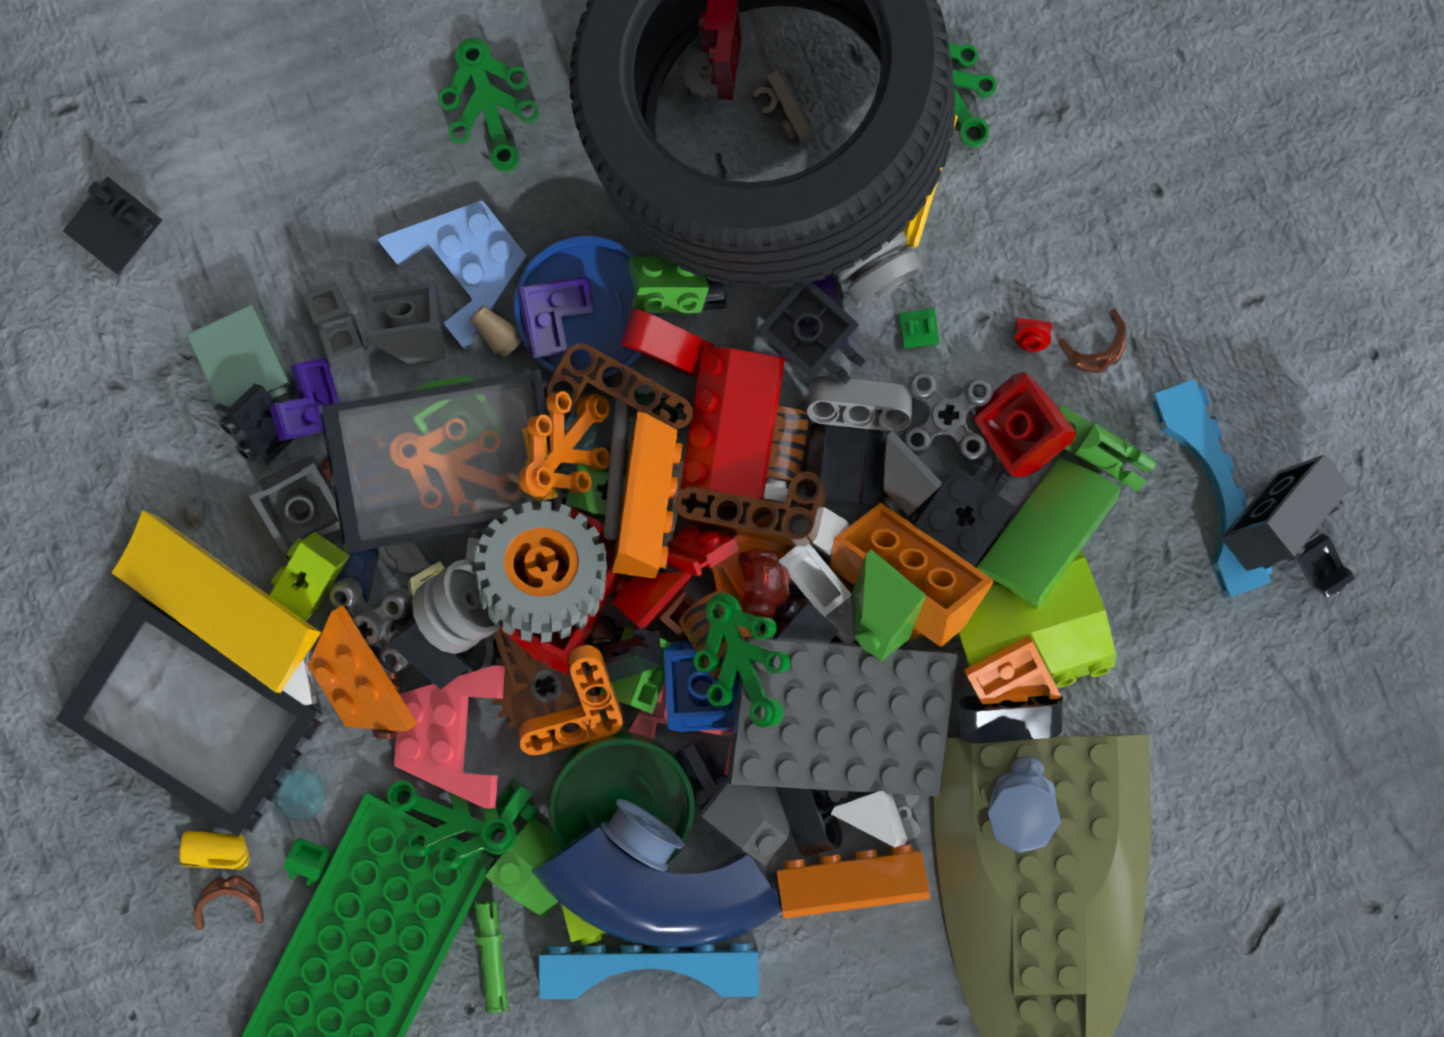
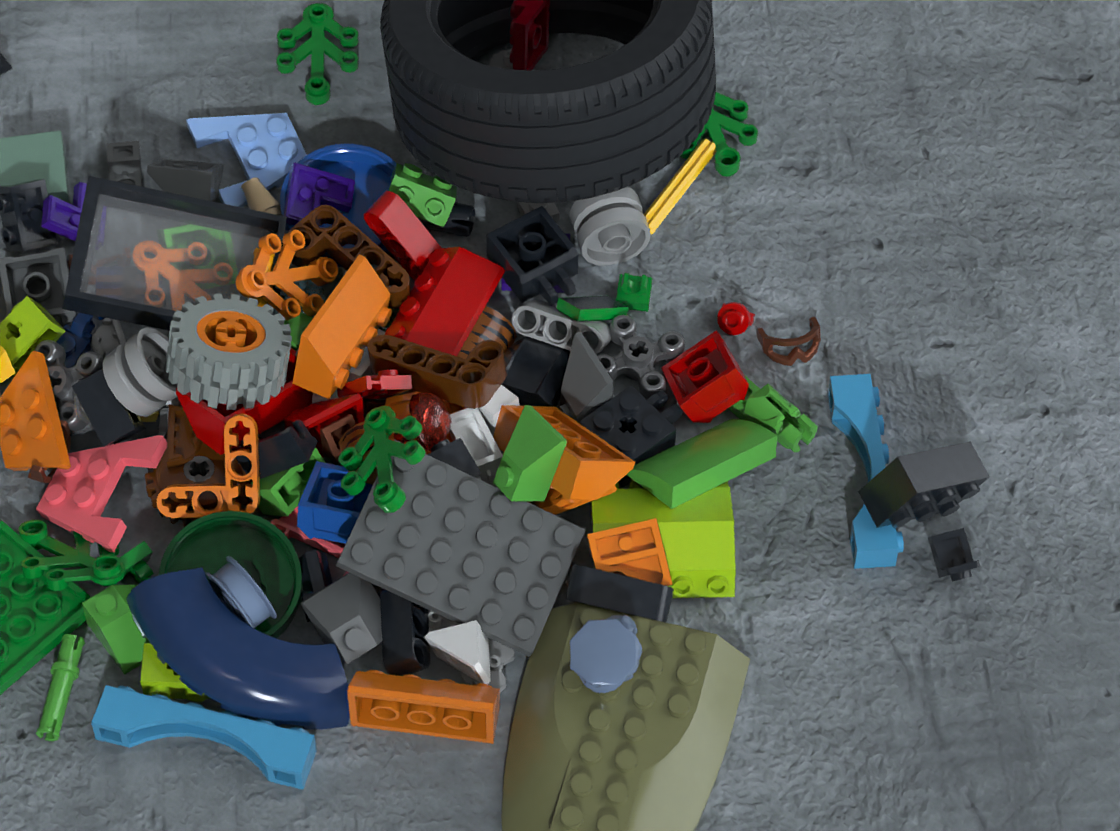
camera: 10 degrees right, 30 degrees down
(886, 373) = (591, 308): none -> tile

